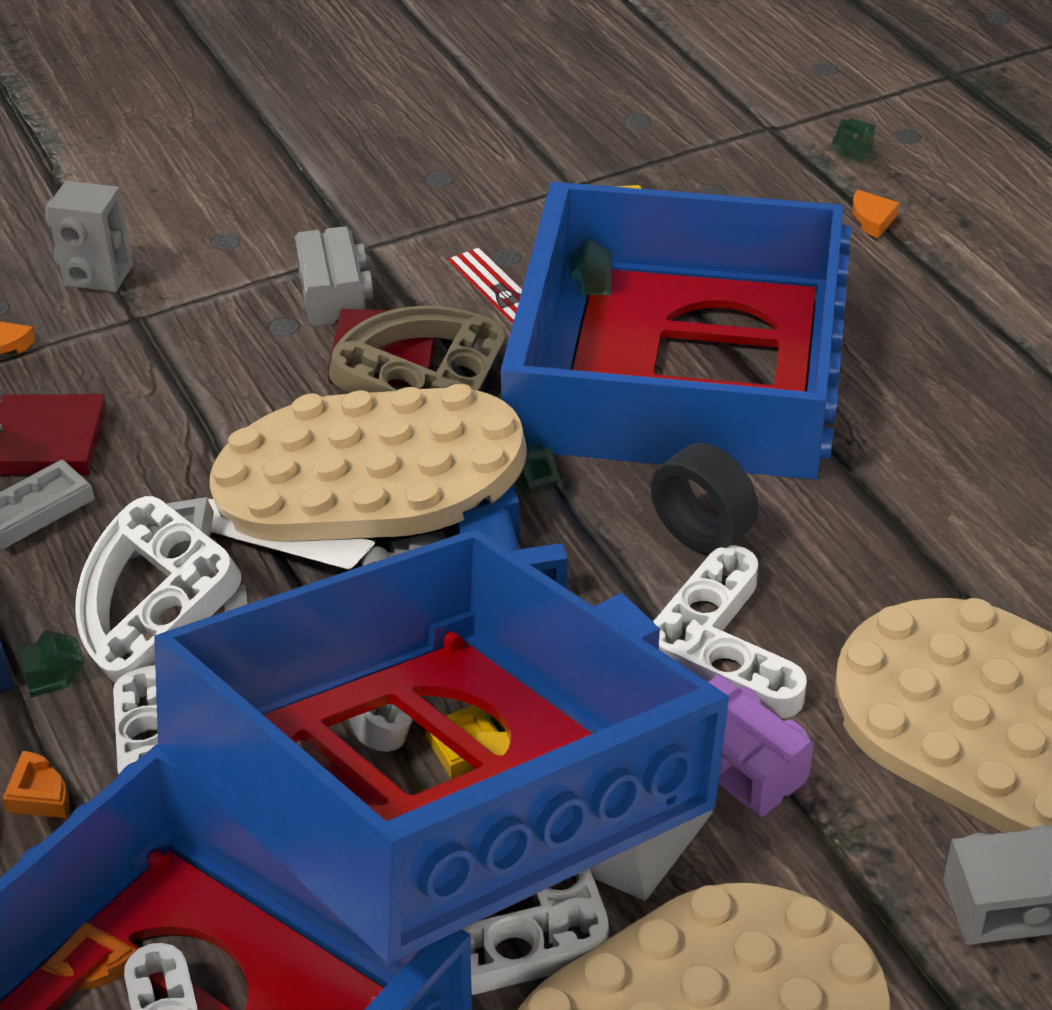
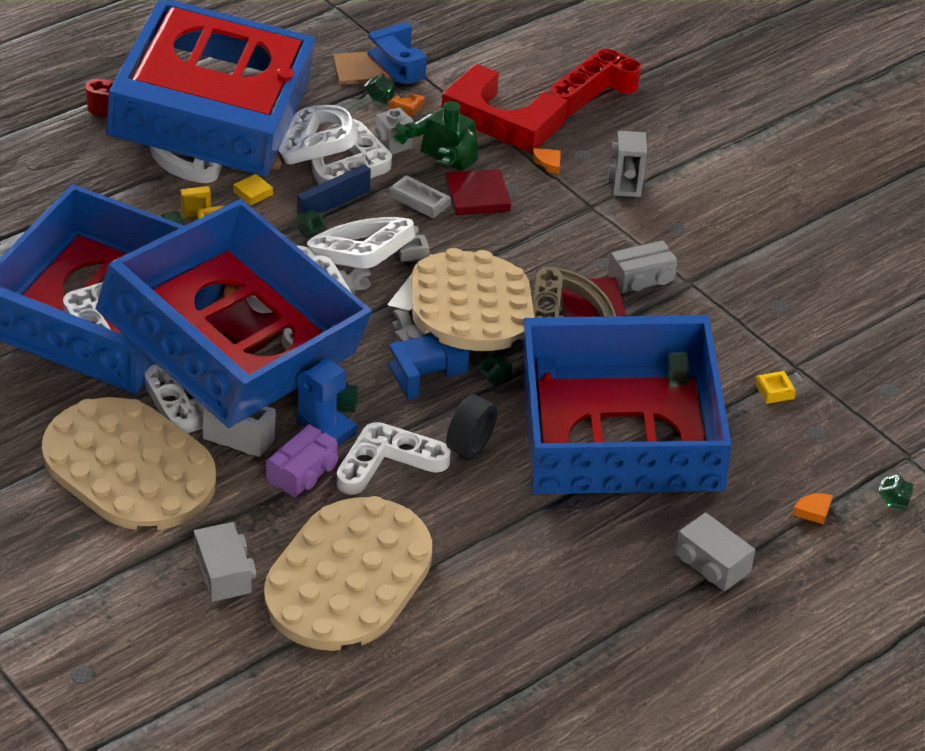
camera: 75 degrees right, 0 degrees up
(983, 298) = (715, 551): none -> light grey brick

